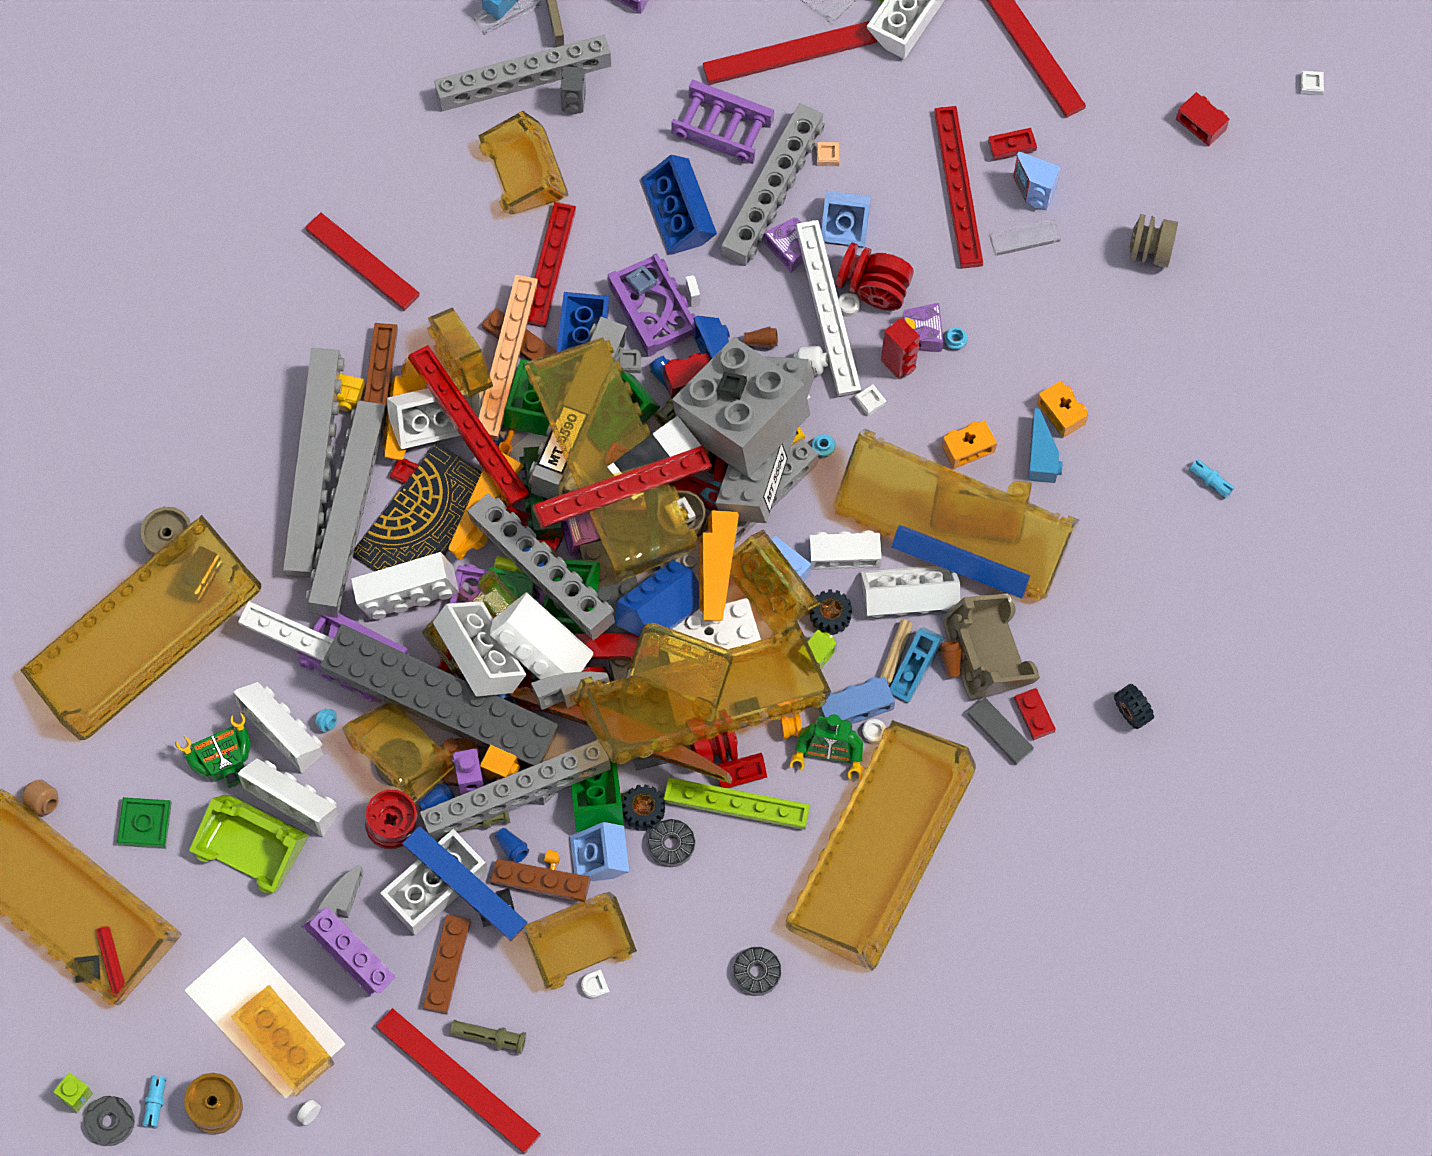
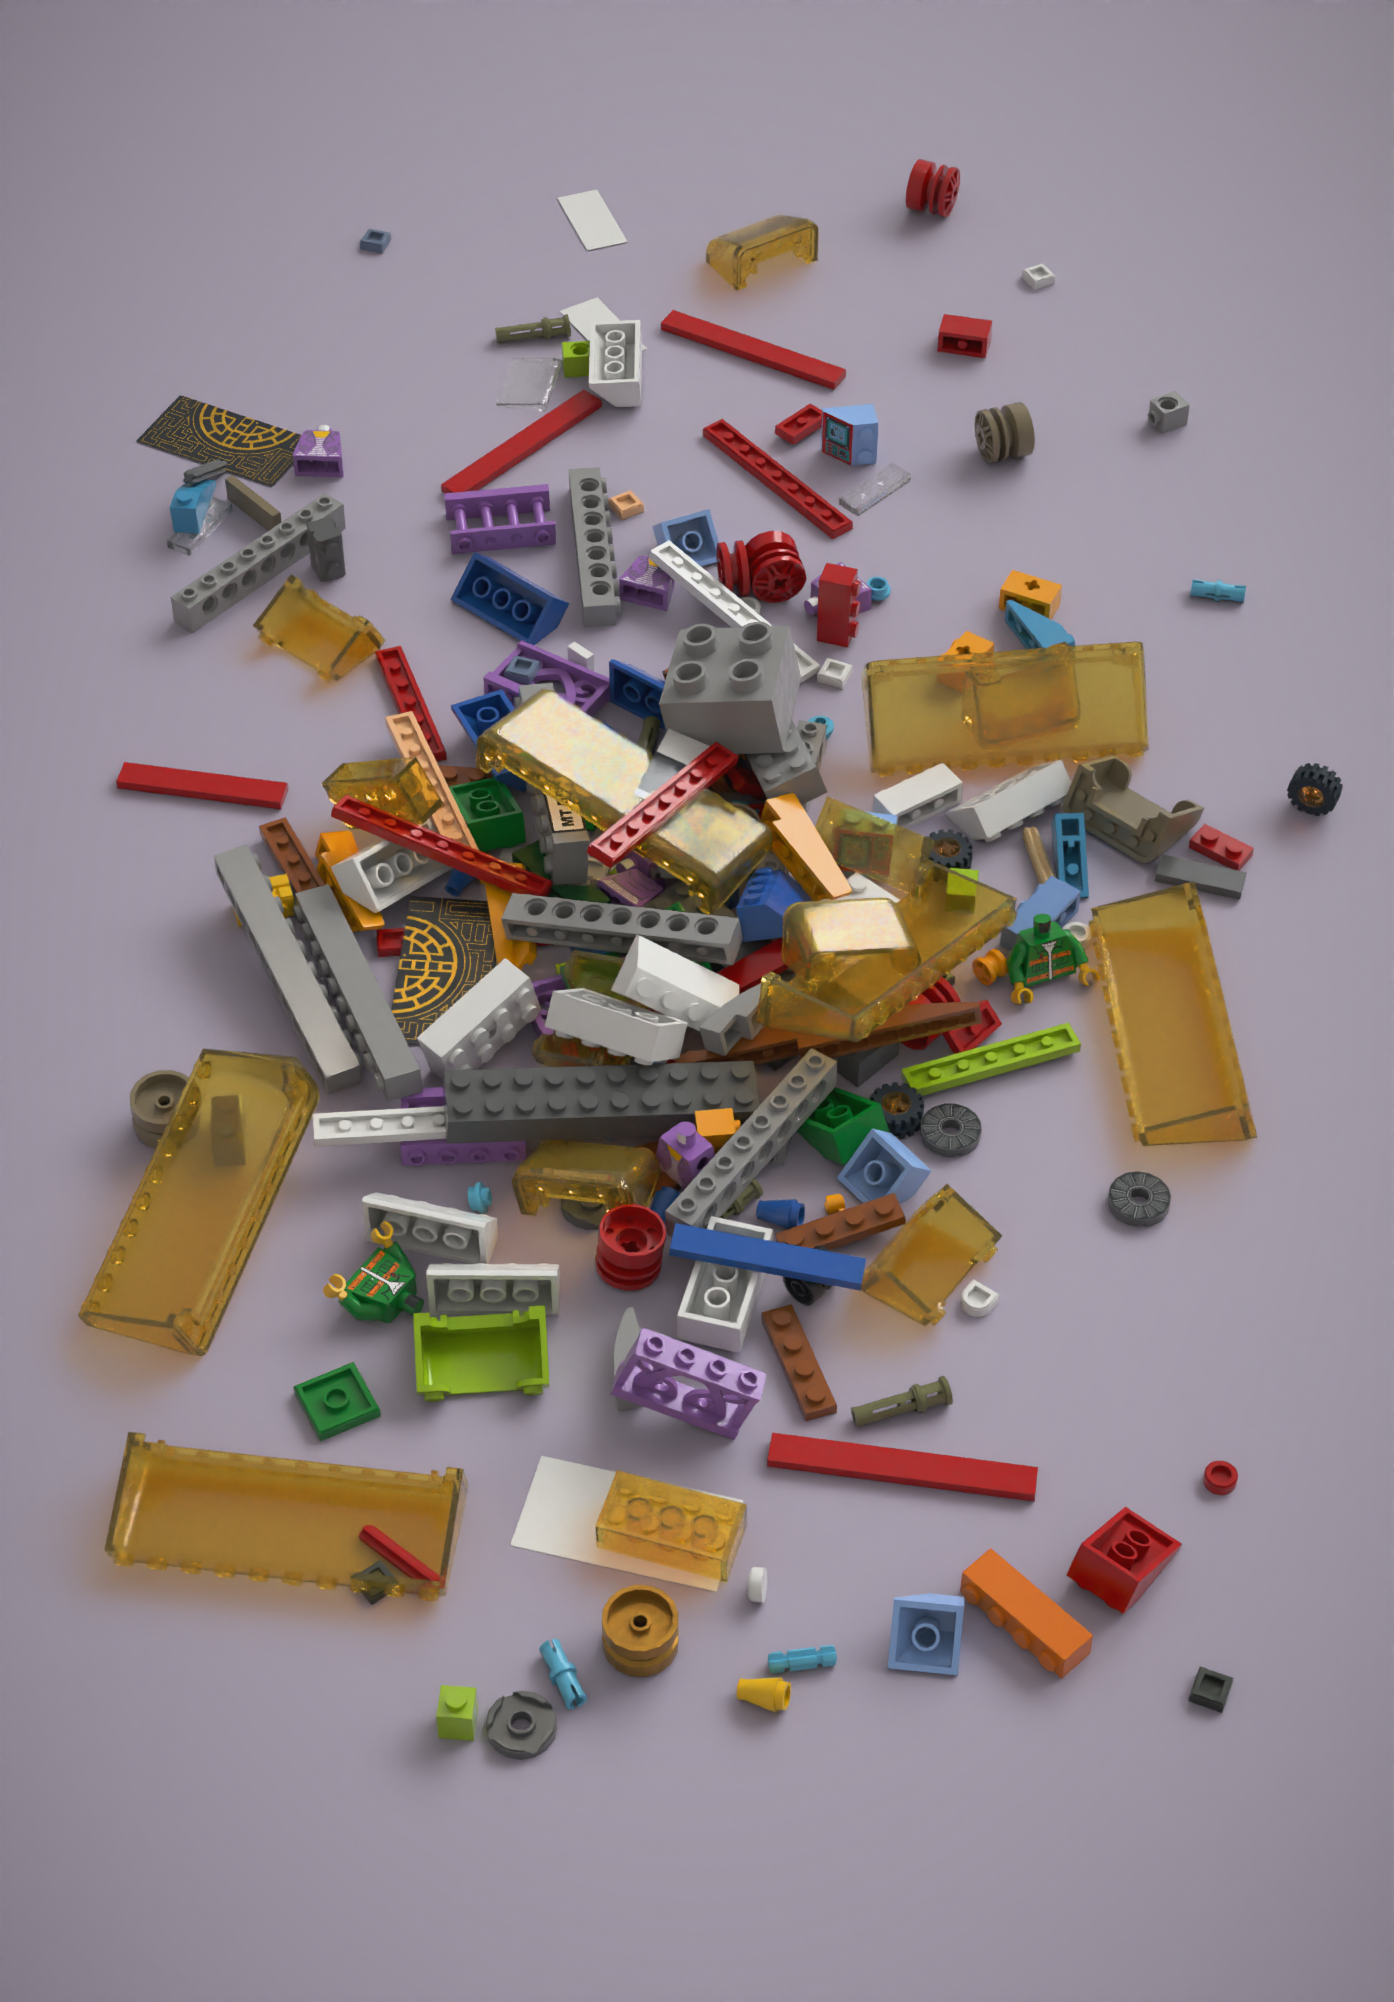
camera: 30 degrees left, 20 degrees down
(40, 797) = (193, 1430): medium nougat head -> none
(680, 372) = (638, 717): red brick -> none
(732, 385) = (717, 656): pearl dark grey tile -> none
(951, 657) = (1101, 834): dark orange cone -> none
(960, 561) = (1044, 747): blue tile -> none
(1311, 276) = (1168, 412): none -> light grey brick

